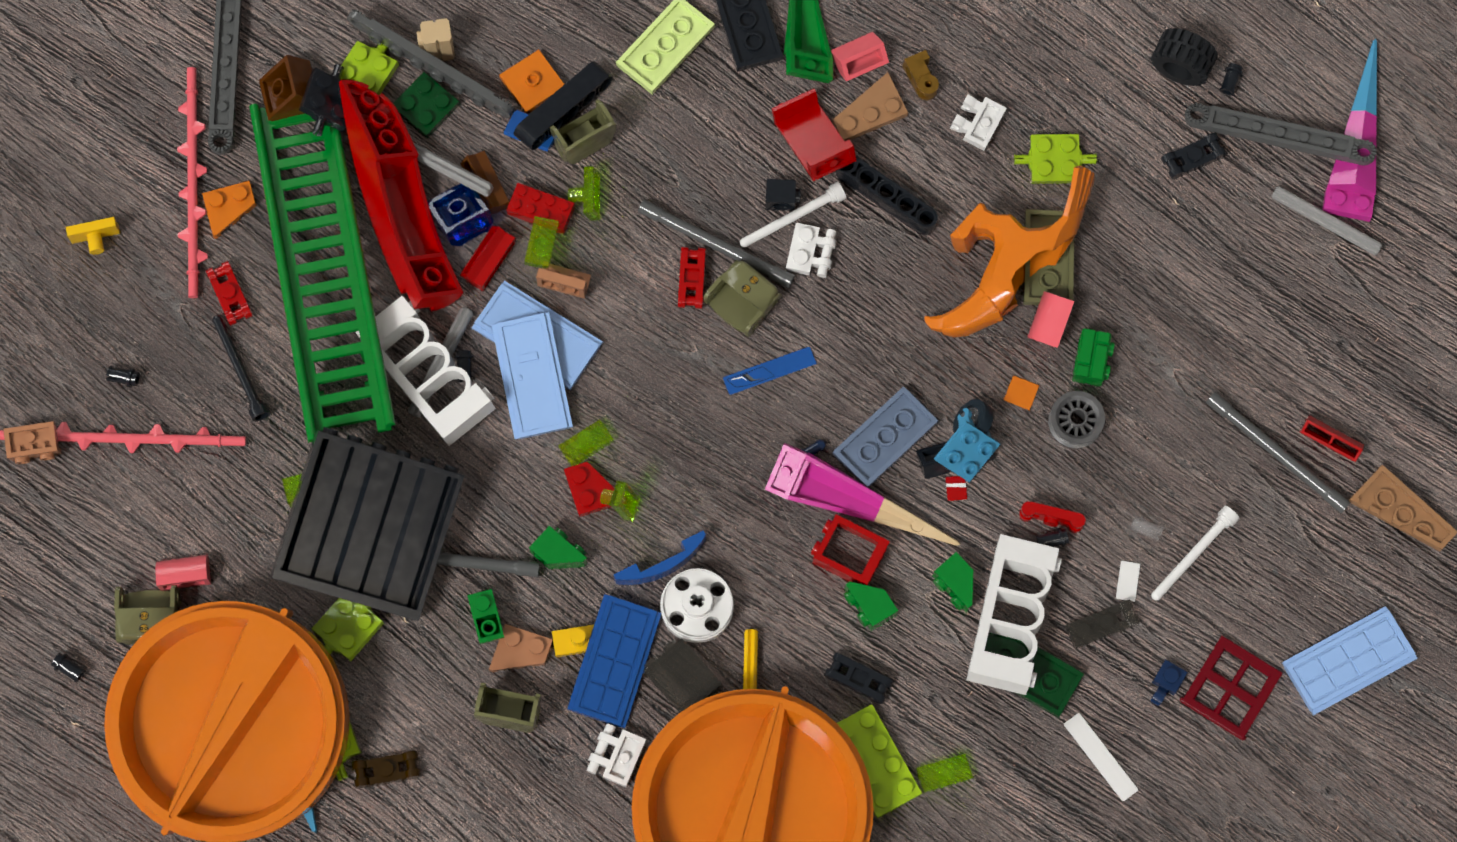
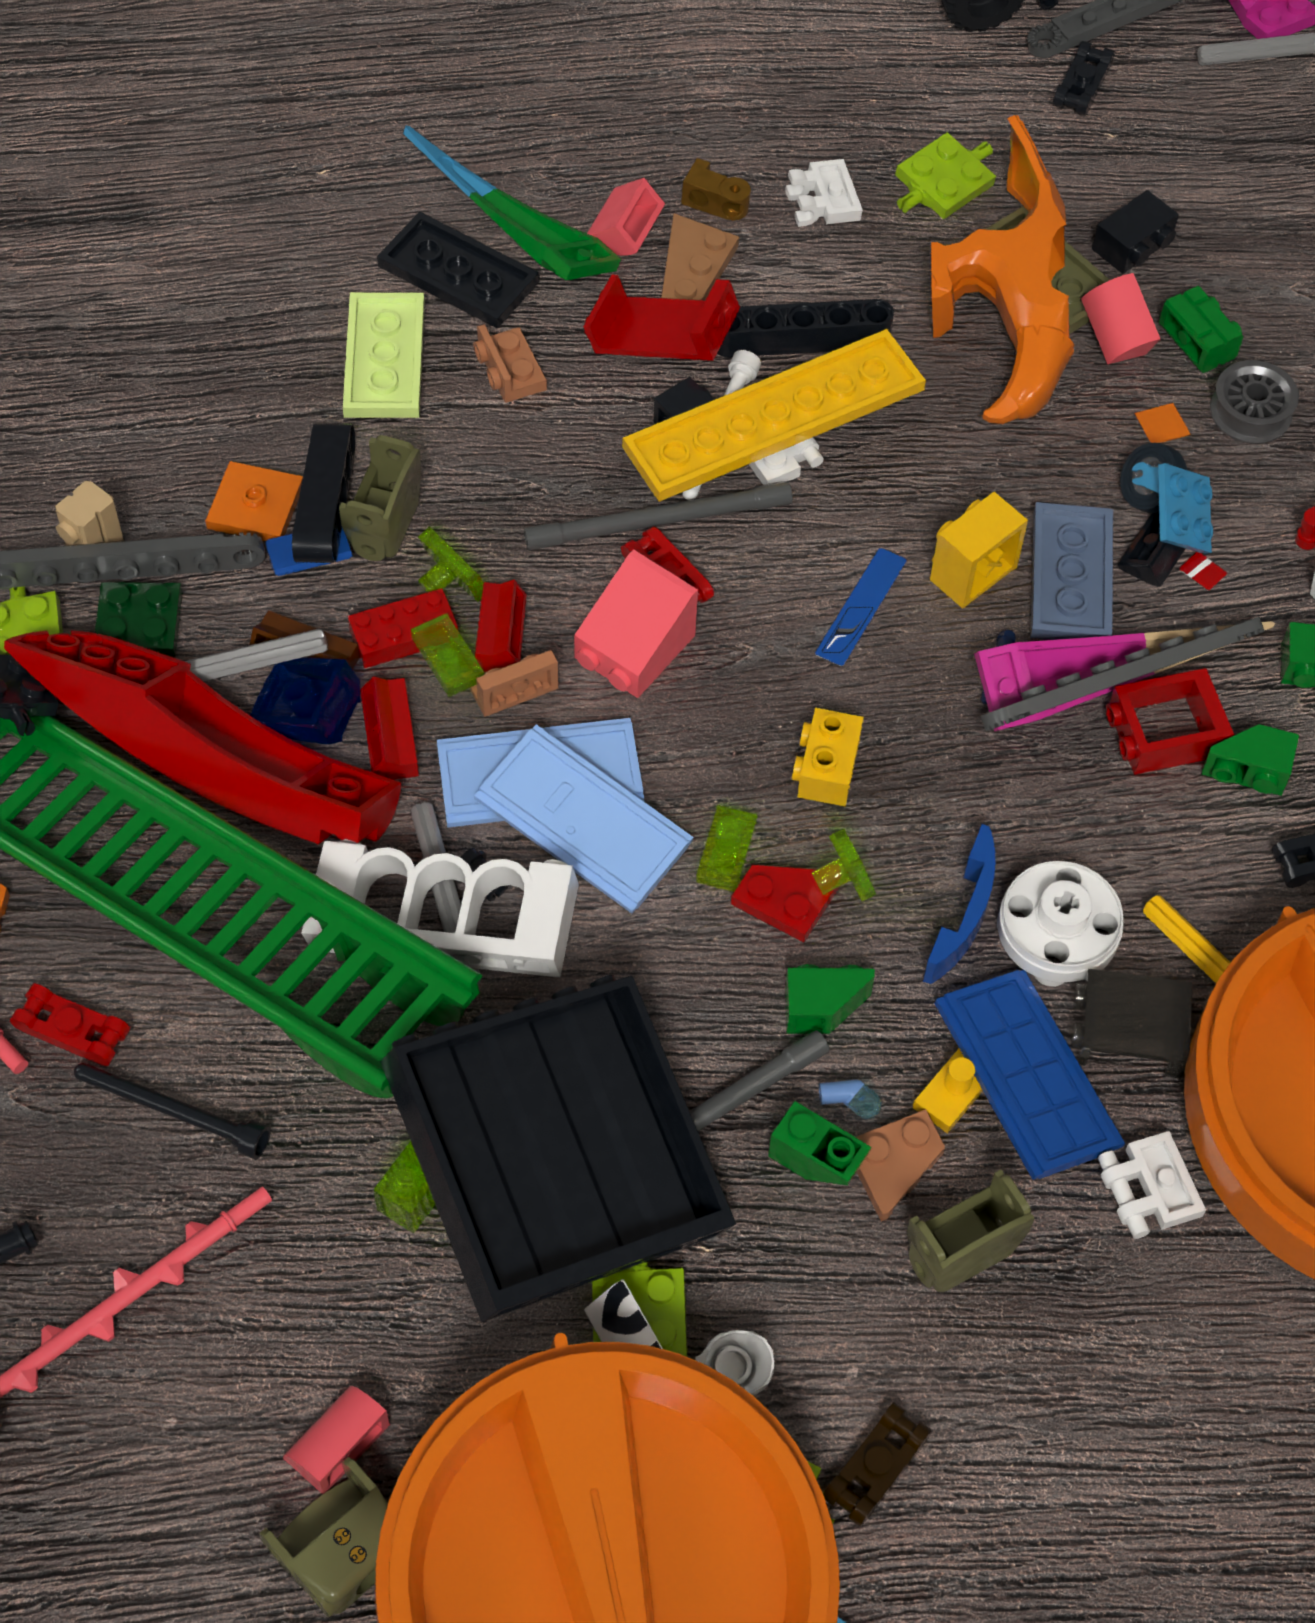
camera: 40 degrees left, 15 degrees down
(332, 626) = (619, 1318): none -> slope
(365, 680) = (741, 1357): none -> white hair
(529, 604) = (853, 1094): none -> arm
(582, 245) = (500, 625): none -> red piece
(642, 298) = (637, 625): none -> coral slope
(670, 437) = (829, 756): none -> yellow brick
(723, 97) = (509, 363): none -> nougat bracket
(742, 297) = (754, 544): olive piece -> none
(817, 235) = (772, 414): none -> yellow plate
(843, 389) = (978, 549): none -> yellow brick
(859, 513) = (1109, 675): none -> dark grey plate
(1118, 274) = (1135, 232): none -> black piece

